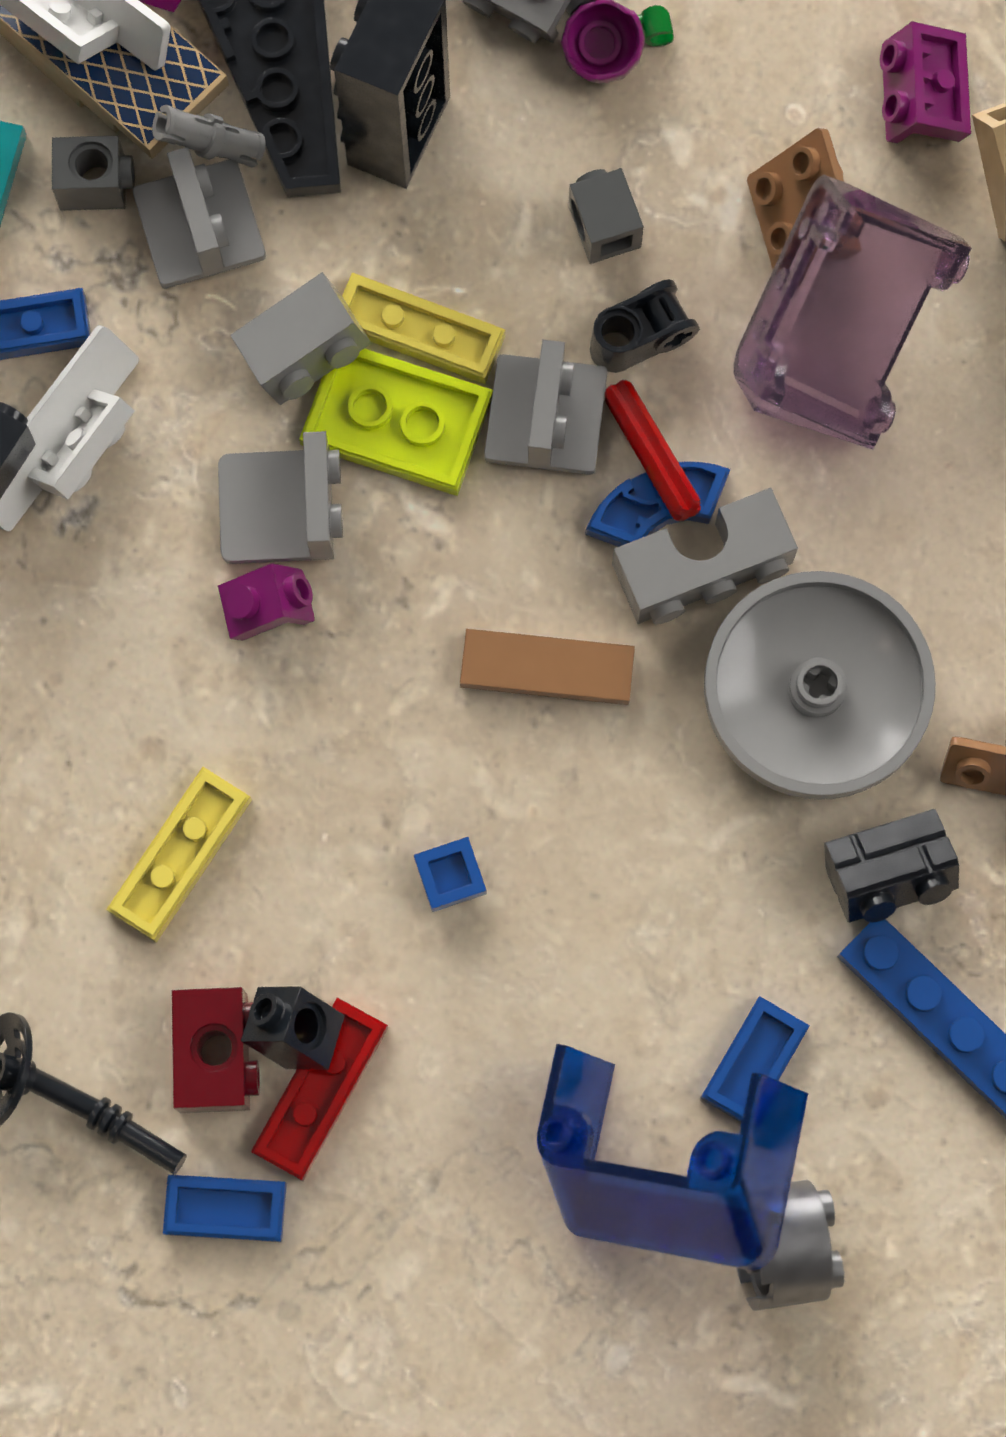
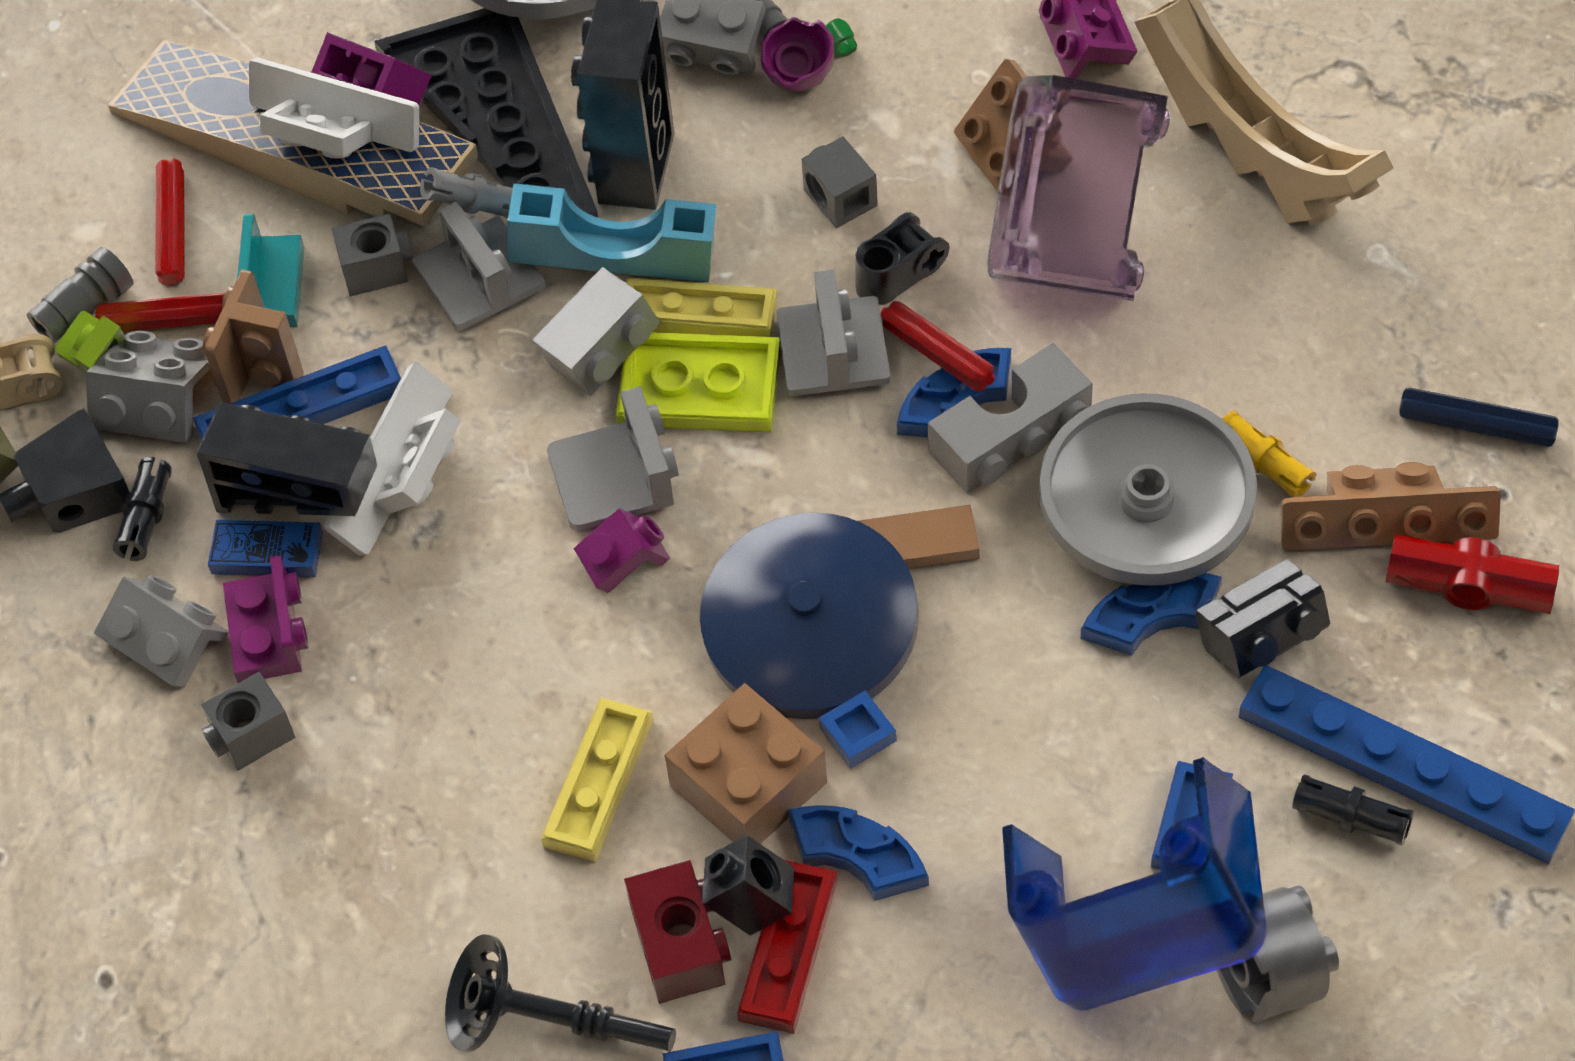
camera: 10 degrees left, 20 degrees down
(290, 208) = (554, 232): none -> medium azure arch
(326, 891) = (746, 767): none -> medium nougat brick
(418, 999) = (860, 846): none -> blue tile
(436, 730) = (809, 613): none -> dark blue dish
(765, 815) = (1140, 611): none -> blue tile
(916, 1099) = (1353, 809): none -> black pin
(957, 670) = (1271, 458): none -> yellow pin

